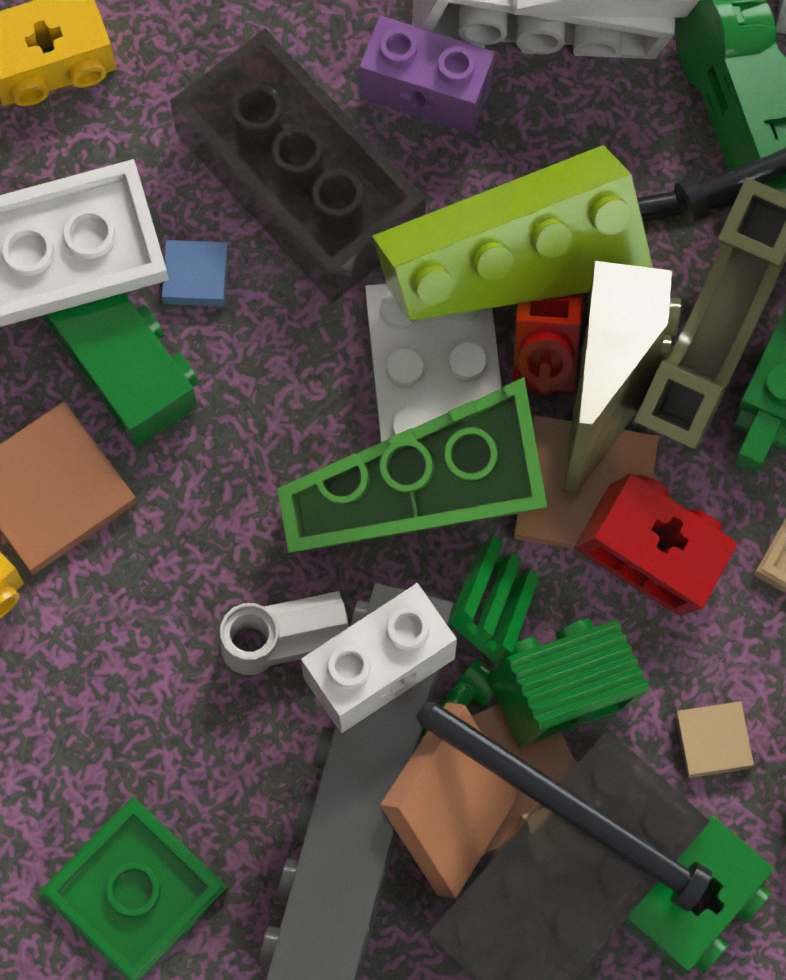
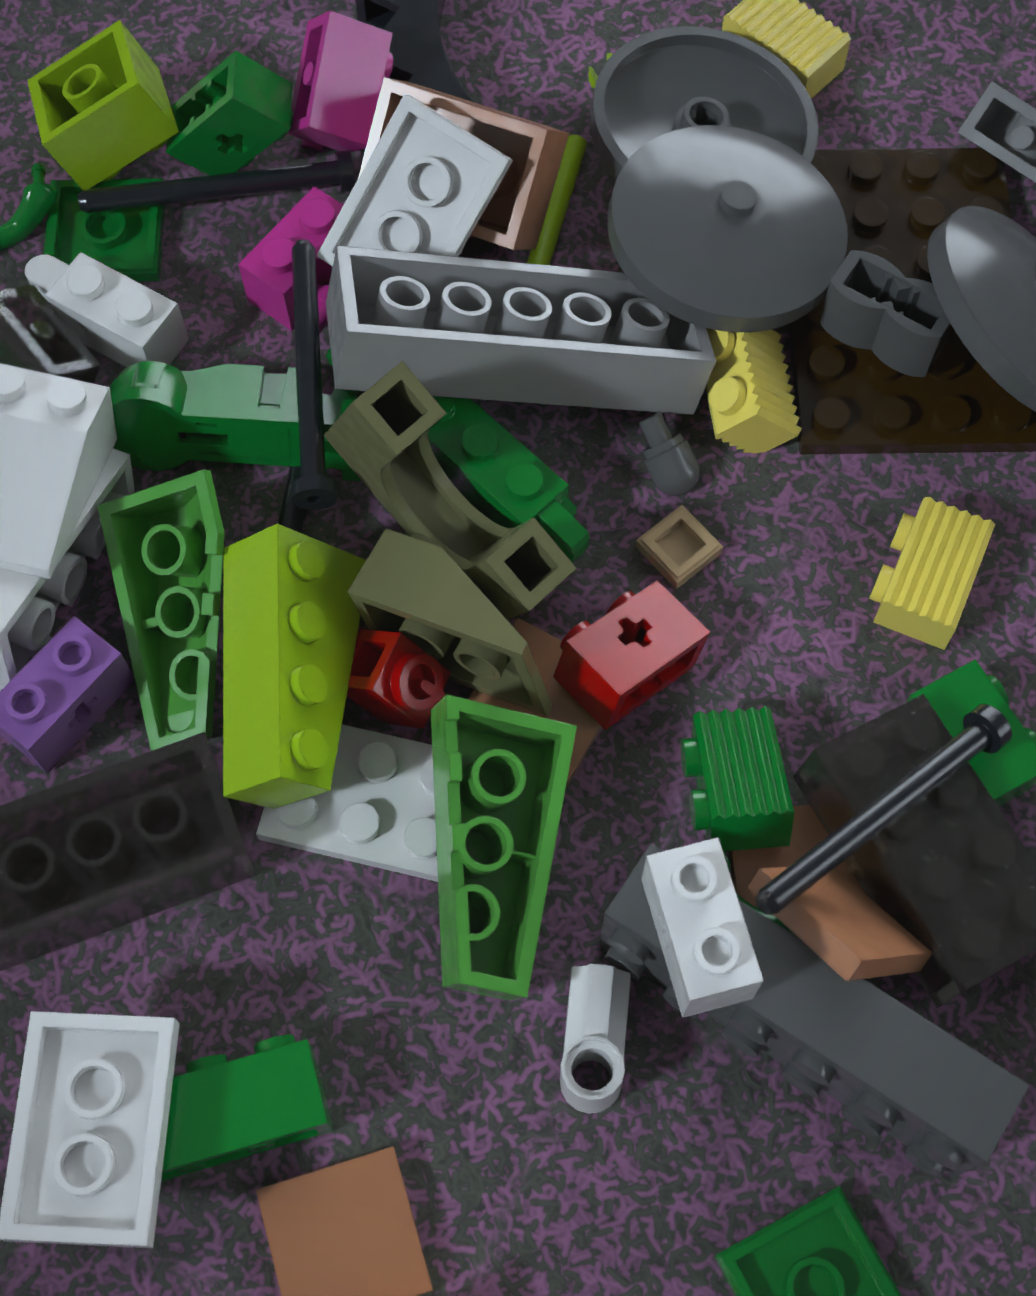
camera: 70 degrees left, 5 degrees down
(195, 273) = (172, 994): medium blue tile -> none
(516, 605) = (638, 815): green tile -> none
(560, 114) = (168, 582): none -> bright green wedge
(714, 739) = (824, 676): tan tile -> none

